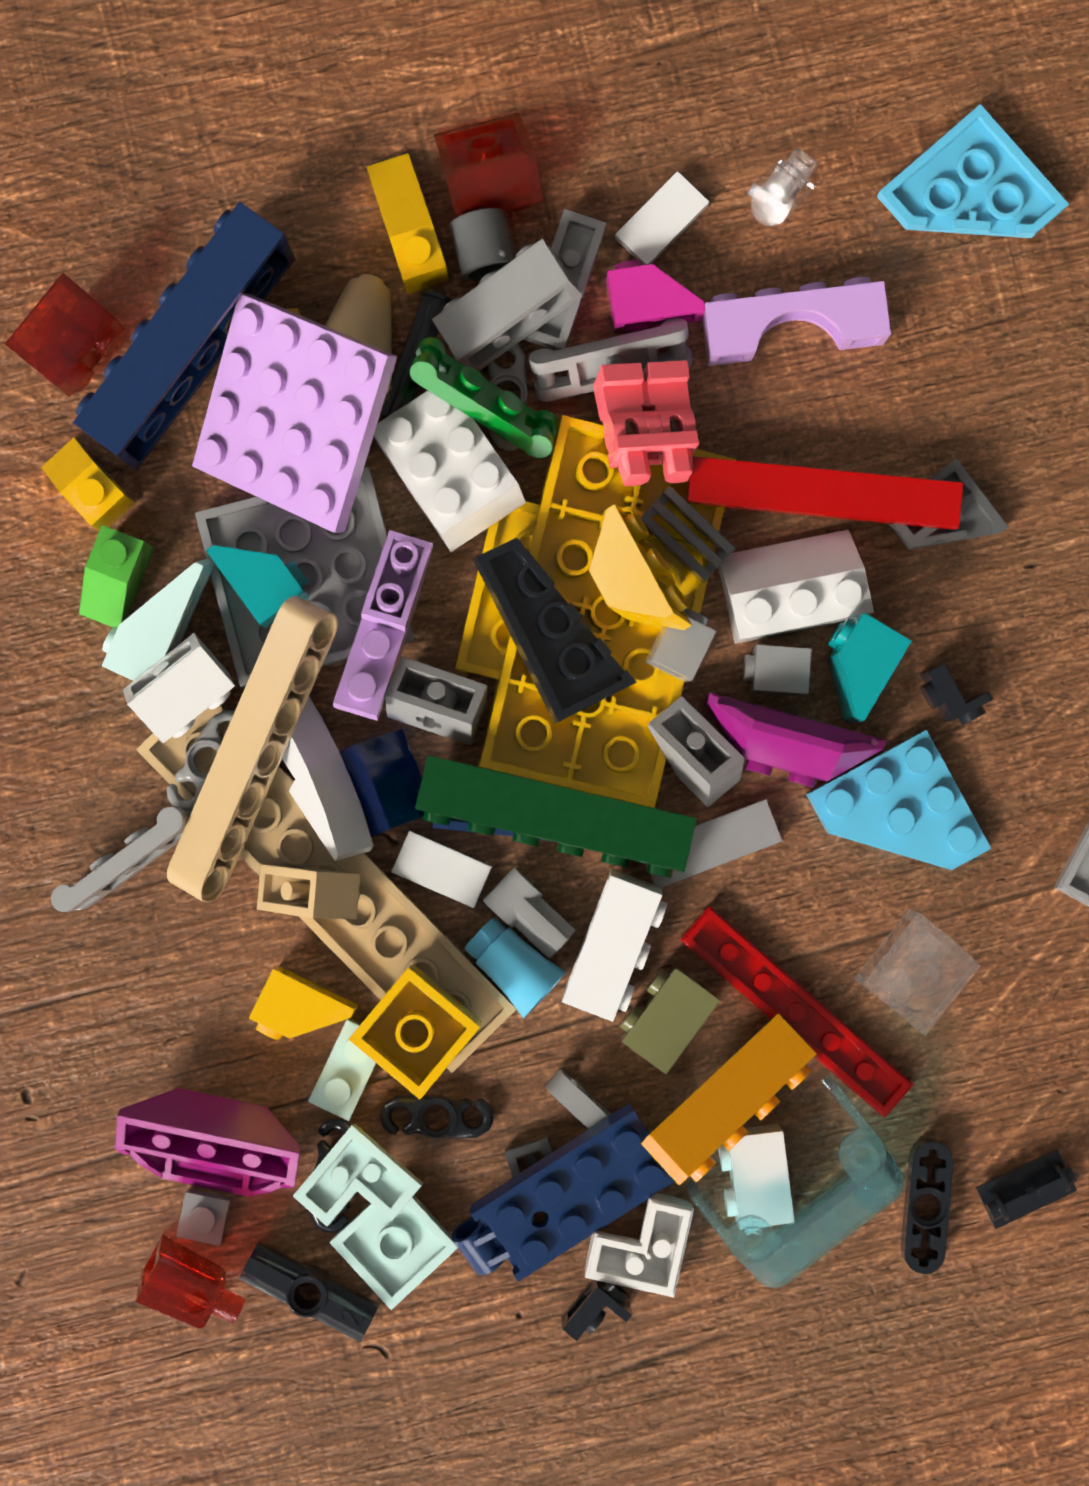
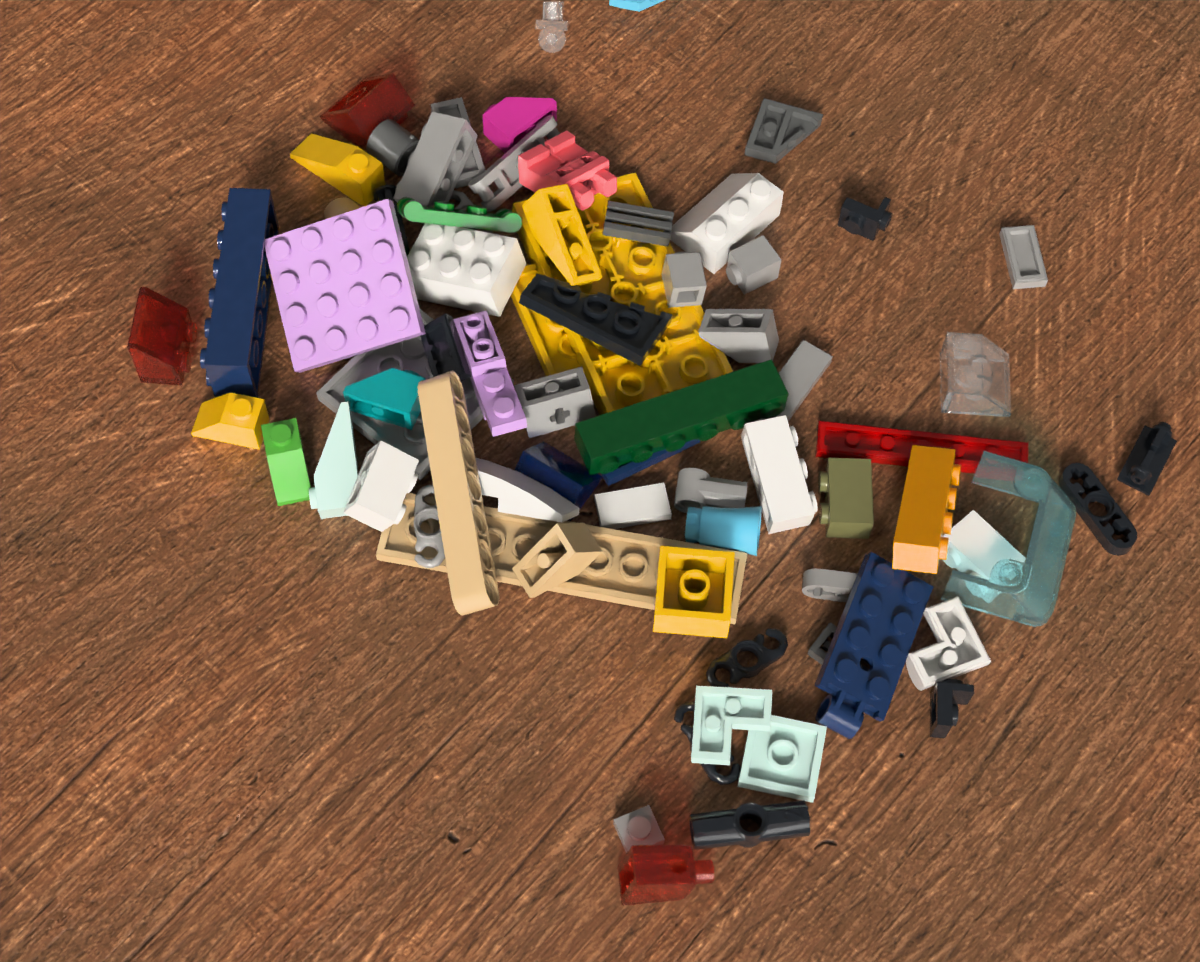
camera: 40 degrees left, 25 degrees down
(113, 870) = (414, 635): light grey plate -> none
(209, 1142) = (611, 770): magenta wedge -> none
(297, 1006) = (602, 644): yellow slope -> none
(343, 1075) = (665, 669): light aqua plate -> none
(354, 563) = (444, 348): none -> black plate
(577, 507) = (562, 234): none -> yellow slope
(633, 574) = (630, 251): yellow slope -> none
(662, 219) = (492, 81): white tile -> none
(789, 742) = (794, 294): magenta wedge -> none
(825, 493) = (703, 154): red tile -> none
(849, 313) = (640, 65): lavender arch -> none
(862, 663) = (799, 224): teal slope -> none
(903, 806) = (888, 297): medium azure plate -> none

